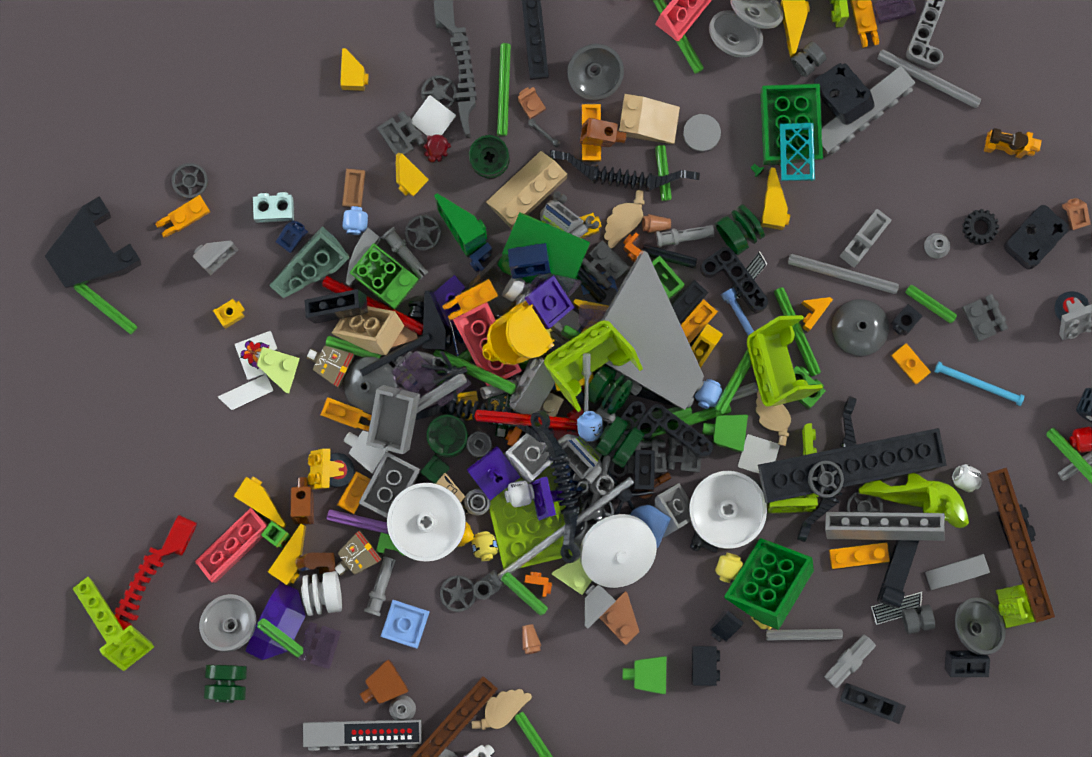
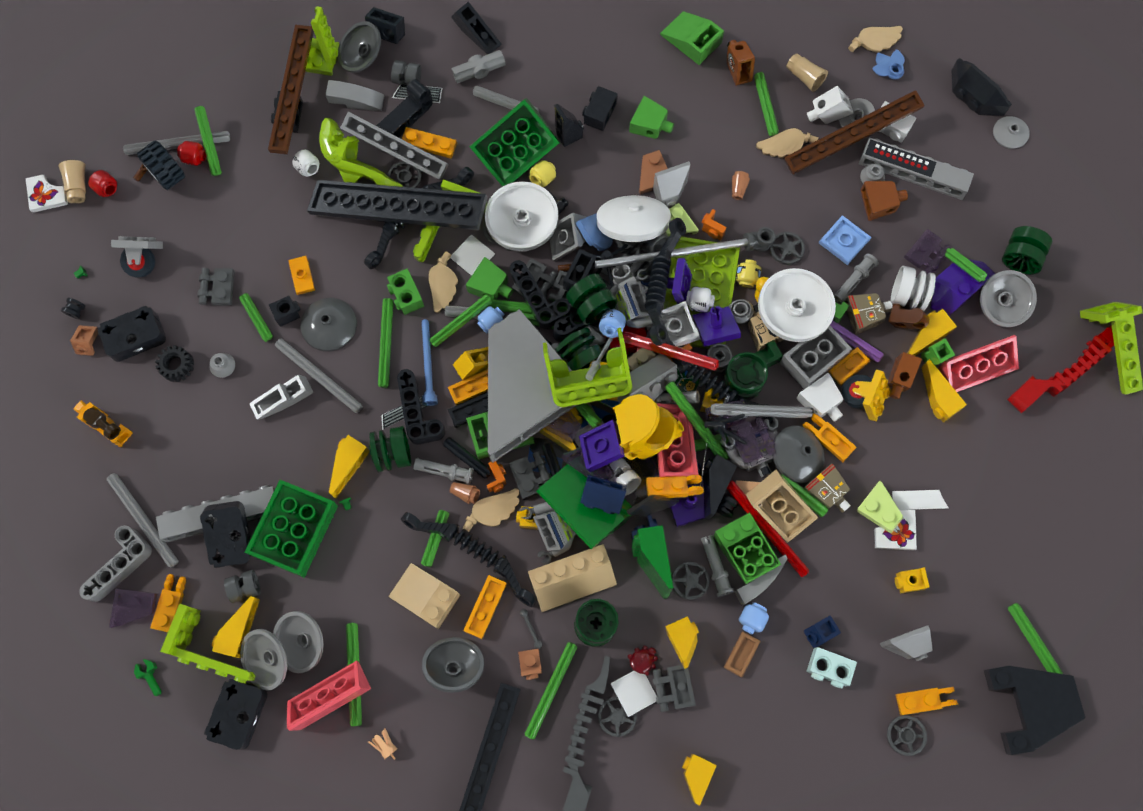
camera: 150 degrees left, 10 degrees down
(315, 260) = (808, 597): sand green wedge -> none
(336, 306) = (806, 538): black brick -> none
(393, 419) = (792, 407): light grey piece -> none
(394, 355) = (767, 466): black bar -> none
(527, 596) = (730, 220): bright green axle -> none
(595, 131) = (477, 595): dark orange torso -> none
(701, 133) = (379, 561): light grey tile -> none
(773, 363) = (422, 310): lime windscreen -> none
(784, 161) = (308, 508): teal window -> none
(817, 306) = (355, 352): light orange slope -> none
(825, 479) = (425, 196): dark grey wheel -> none
(979, 383) = (227, 208): medium azure bar -> none

